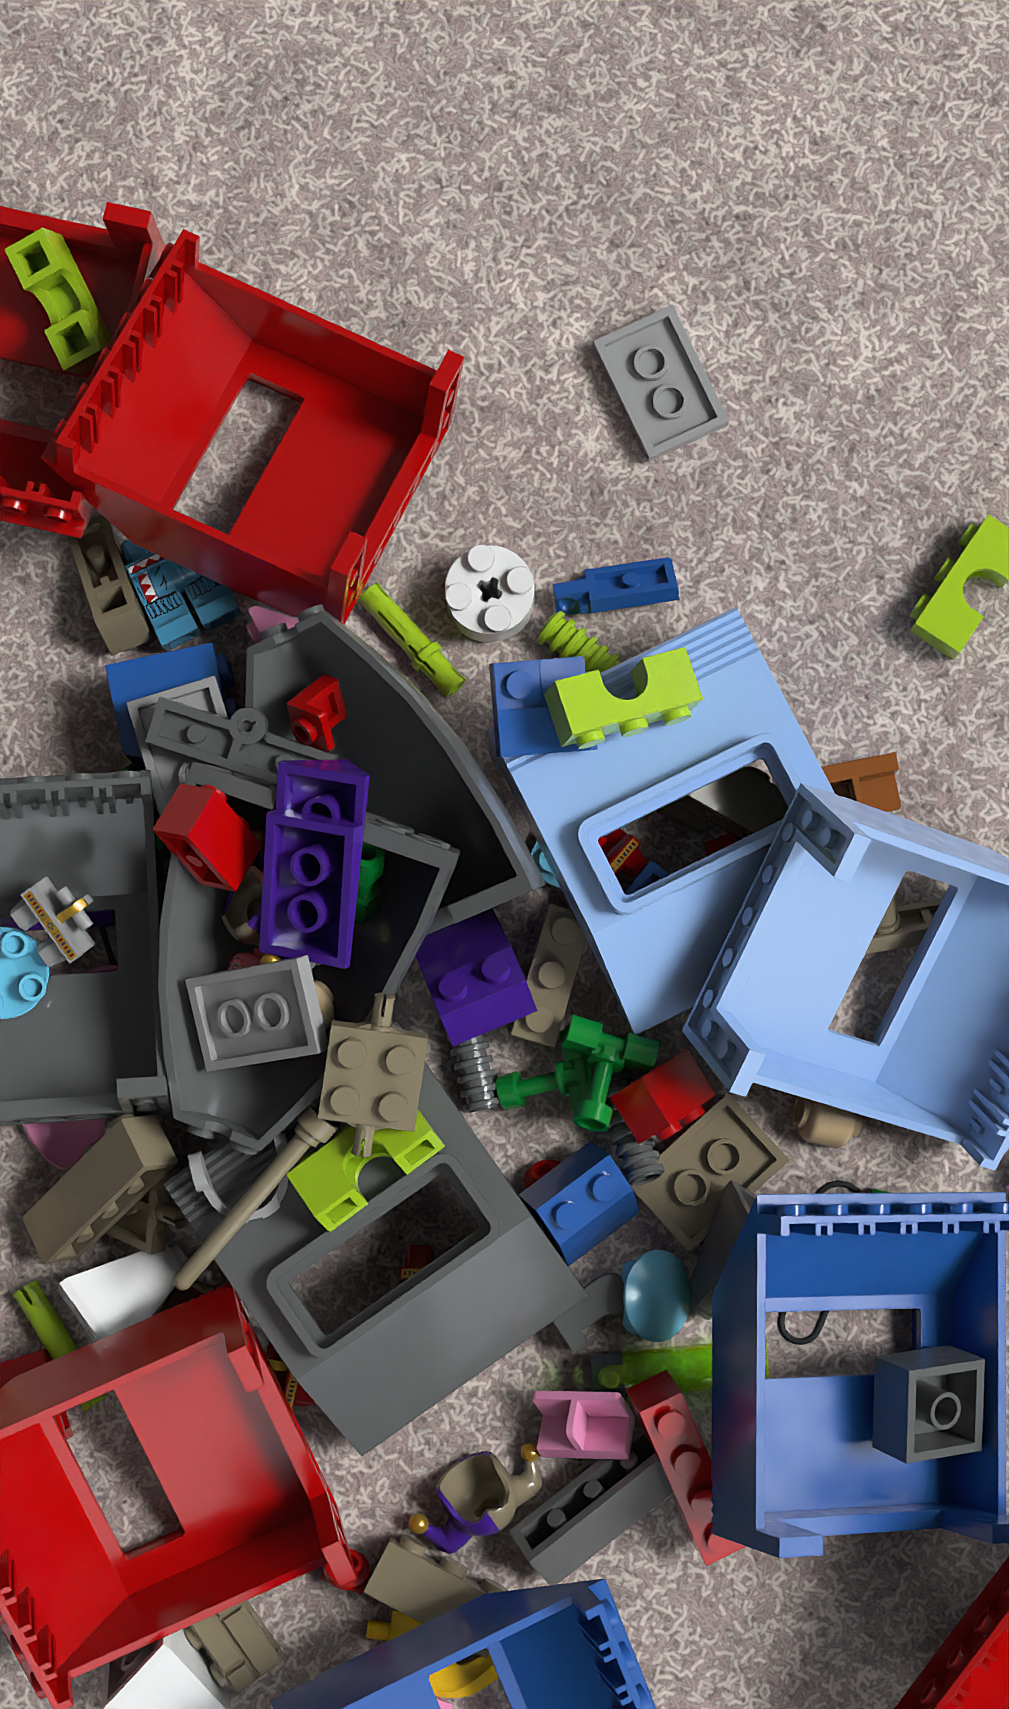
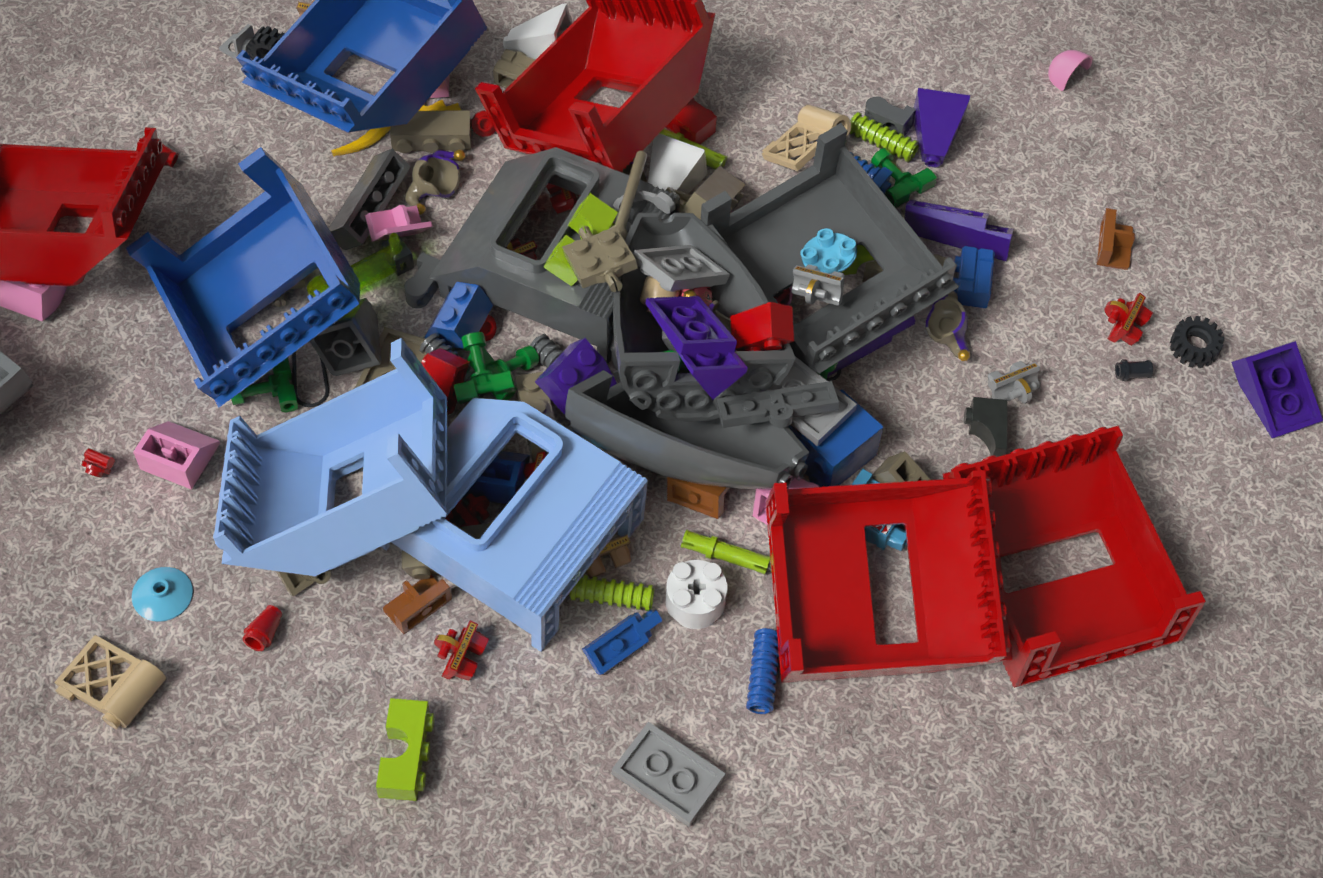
camera: 145 degrees right, 25 degrees down
(53, 277) = (1028, 599): lime arch -> none
(316, 712) = (749, 440): red bracket -> none
(465, 448) = (763, 671): none -> blue piece
(520, 708) = (622, 498): blue plate -> none
(587, 711) = (592, 494): lime arch -> none
(655, 1295) = (392, 298): medium azure dish -> none
(683, 1459) = (351, 227): arch -> none
(836, 687) = (468, 640): none -> red hips
(928, 1403) = (214, 298): dark grey brick -> none

